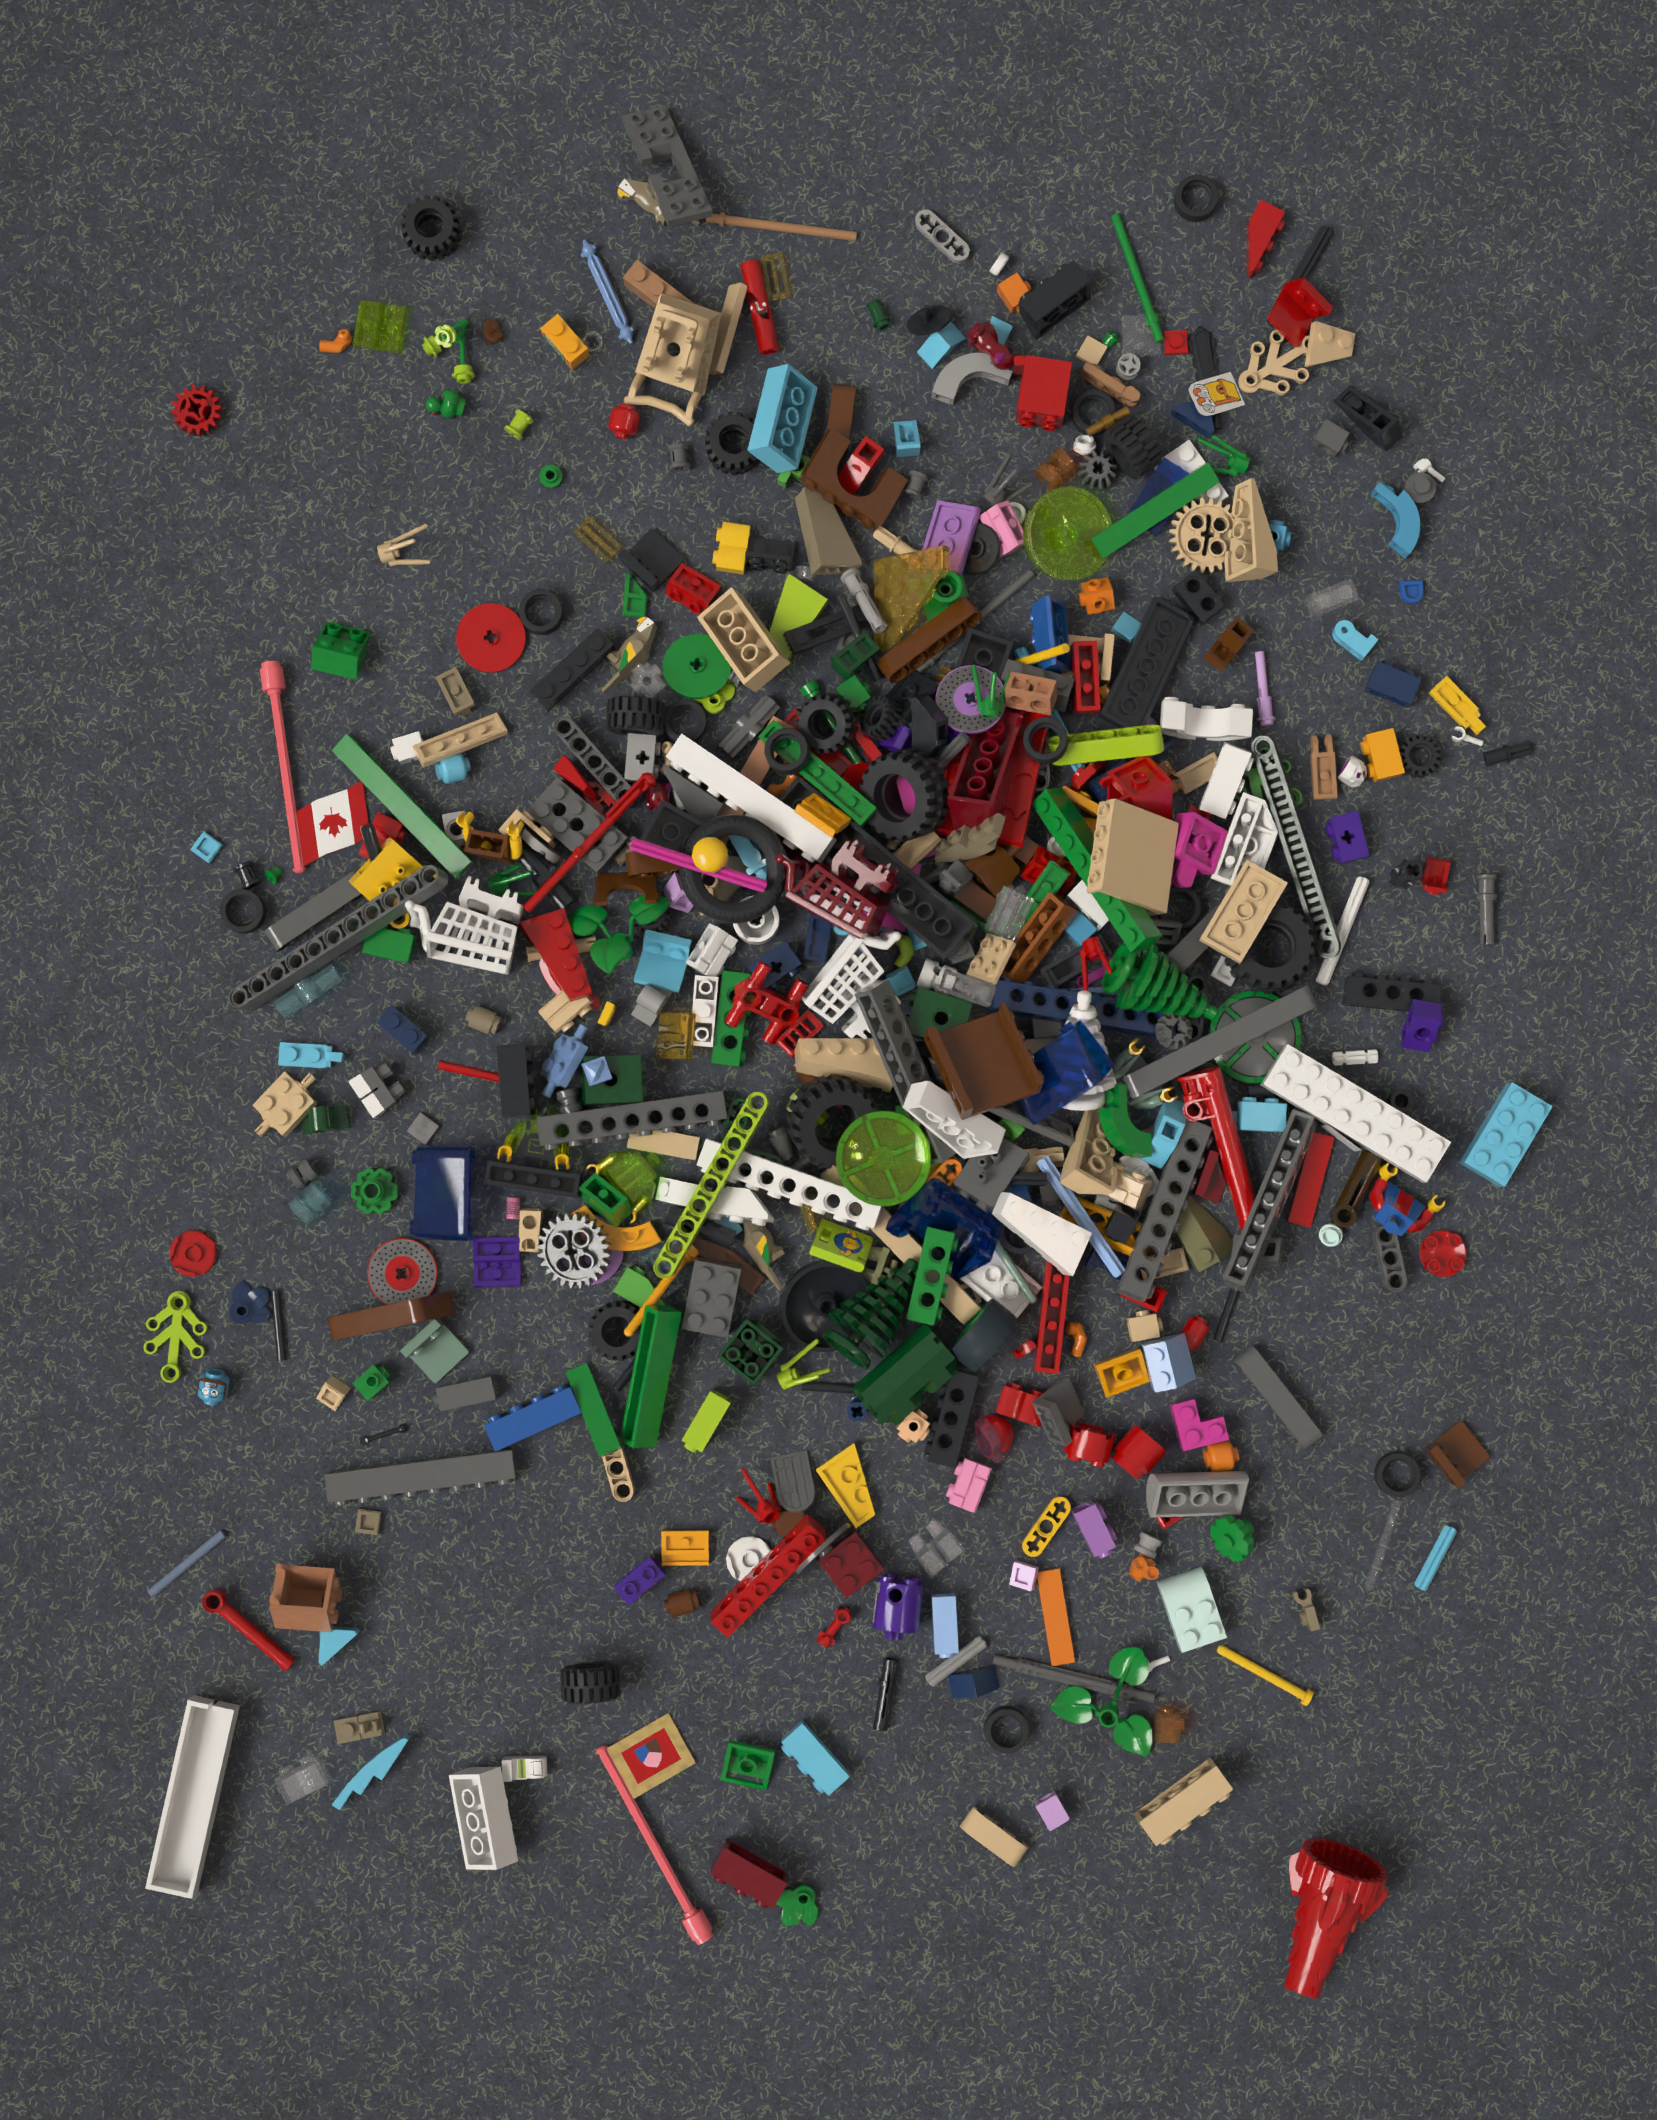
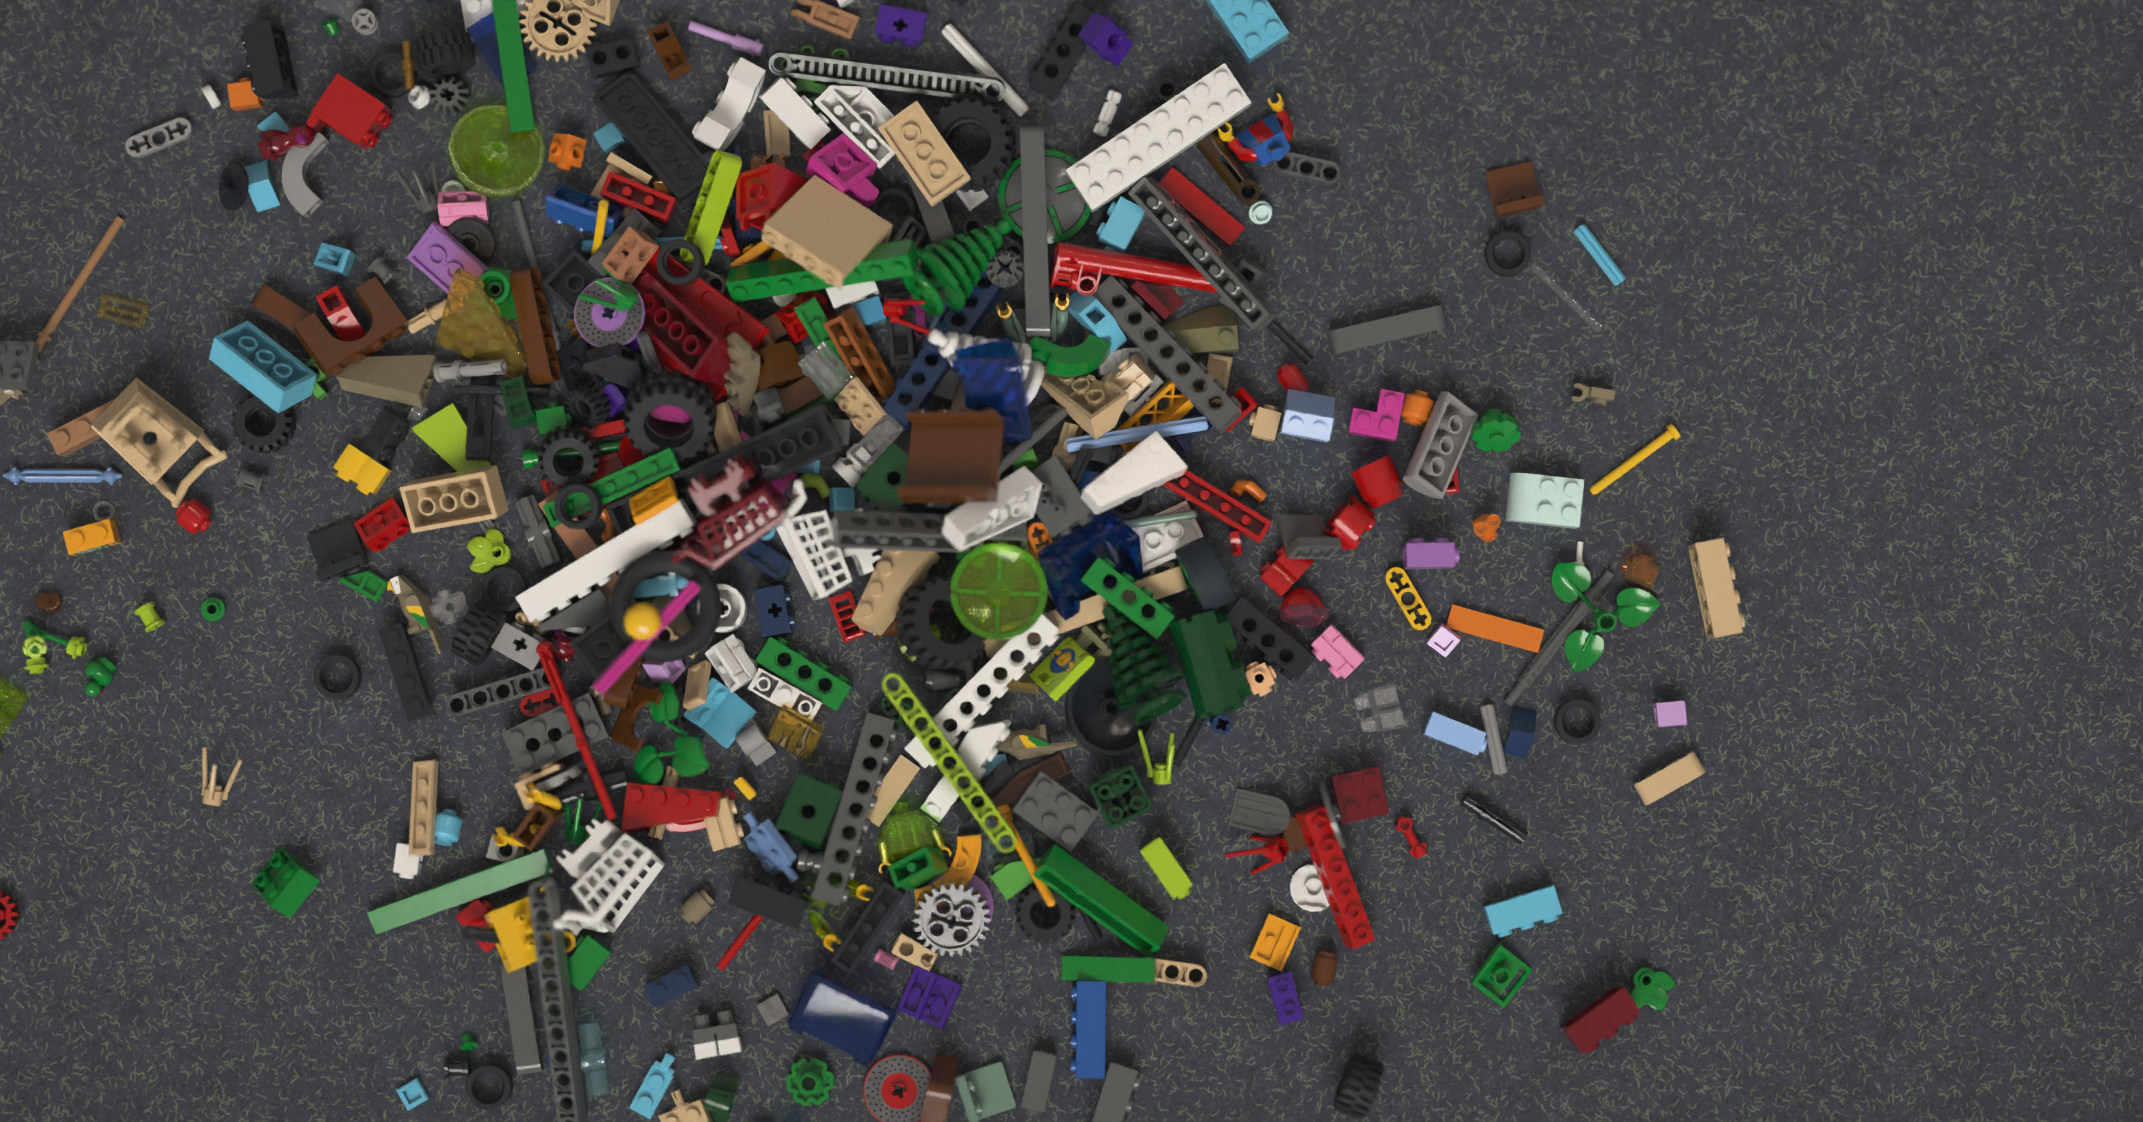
camera: 65 degrees left, 0 degrees up
(328, 821) = (442, 970): flag -> none
(455, 692) = (375, 791): dark tan plate -> none
(506, 647) = (352, 750): red piece -> none
(569, 772) = (502, 719): red slope -> none
(583, 526) = (274, 600): clear yellow tile -> none
(596, 1071) = (794, 820): medium blue tile -> none
(639, 1765) = (1456, 1077): flag -> none
(677, 929) = (697, 685): none -> tan tile
(680, 663) = (458, 572): green piece -> none
(727, 328) = (138, 368): tan tile -> none
(759, 305) = (129, 335): red piece -> none
(766, 1002) = (804, 633): red piece -> none
(847, 1484) = (1286, 764): yellow wing -> none
(878, 315) = (205, 231): dark green pin -> none
(894, 1613) = (1423, 775): dark purple cylinder -> none
(1048, 470) = (427, 142): clear orange wheel -> none
(1091, 351) = (334, 49): tan tile -> none
(1110, 385) = (374, 47): medium nougat hinge -> none
(1121, 1223) = (1160, 399): black brick -> none
(1122, 1372) = (1298, 463): light orange slope -> none
(1147, 1545) = (1467, 512): light grey wheel -> none
(1335, 1891) = (1858, 488): red cone -> none
(1341, 1138) = (1175, 161): white sticker -> none
(1443, 1253) = (1325, 117): red dish -> none

